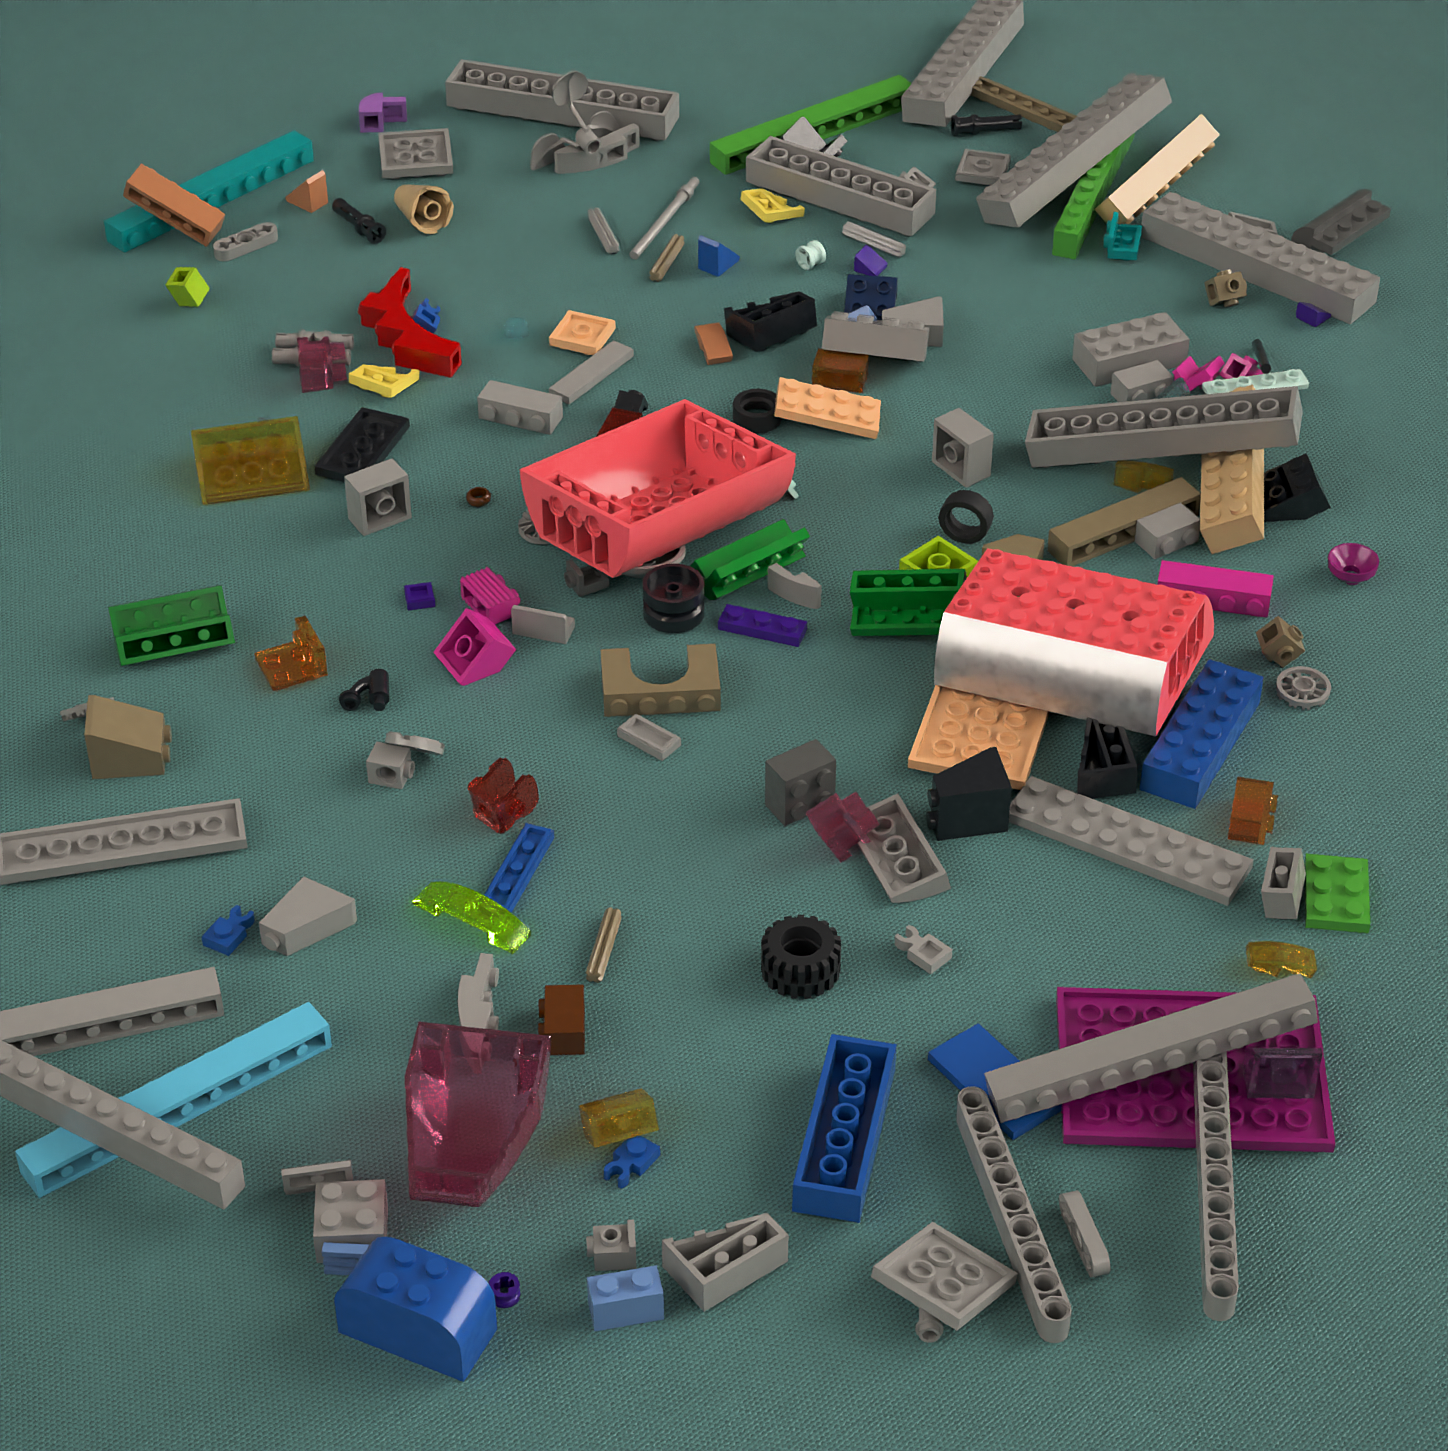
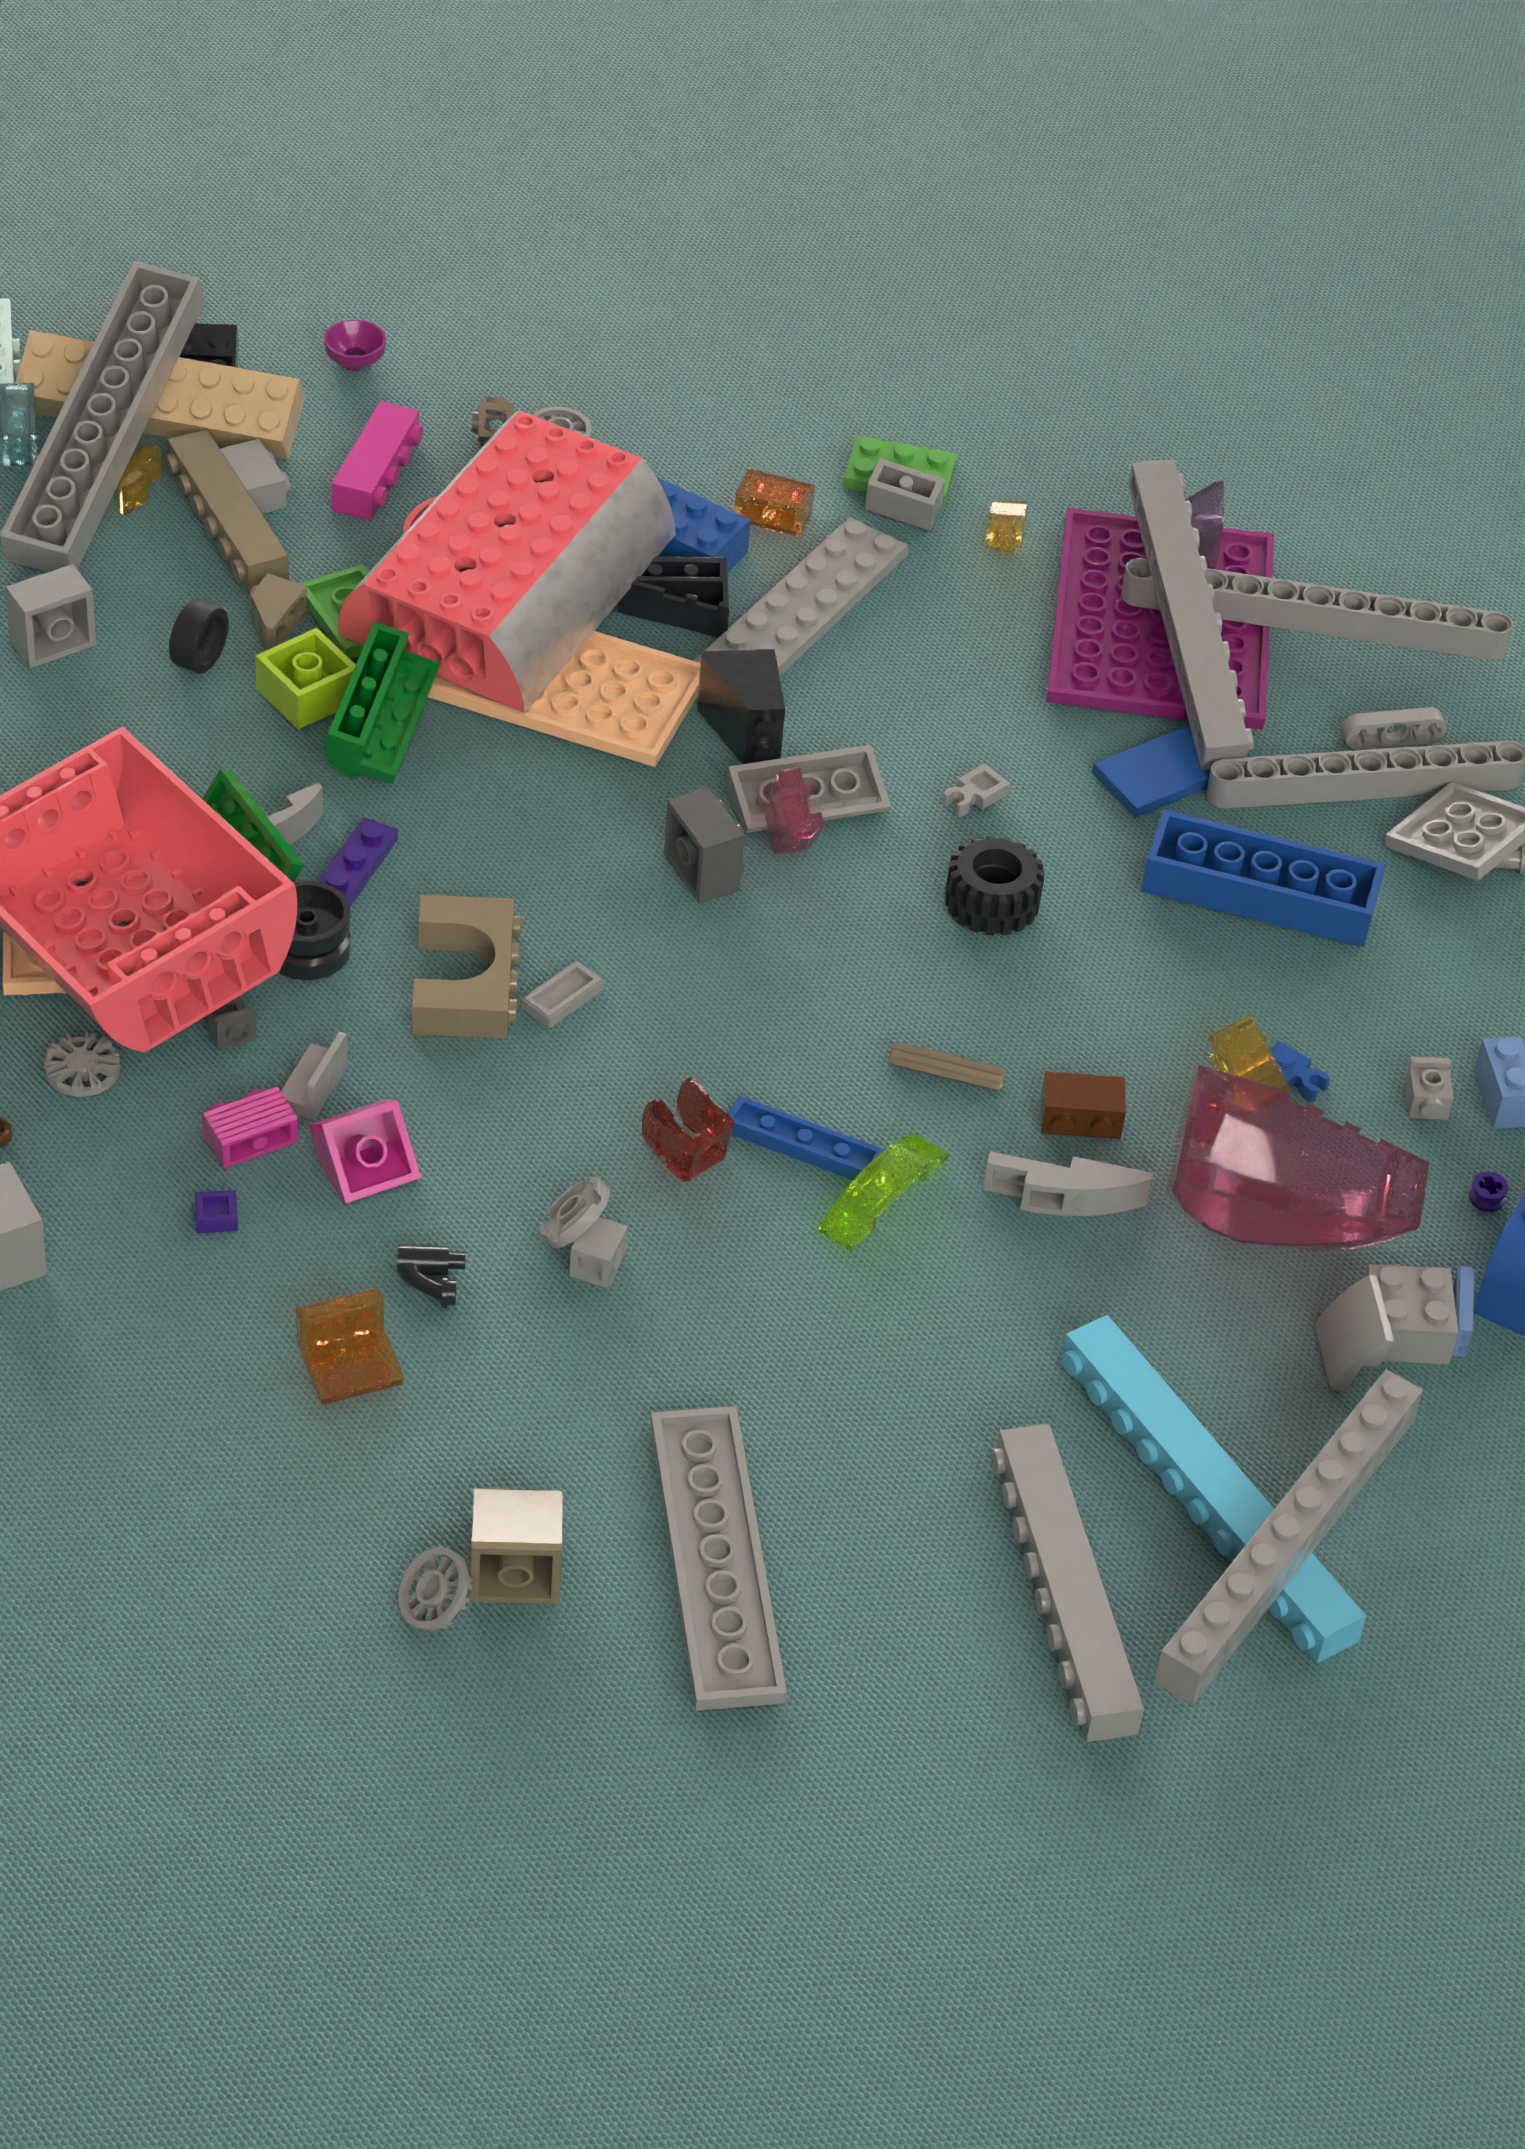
camera: 90 degrees left, 5 degrees up
(170, 625) = (264, 1490): green brick -> none
(225, 934) = (900, 1441): blue plate -> none
(305, 917) = (889, 1349): light grey slope -> none
(725, 1260) = (1456, 992): light grey wedge -> none

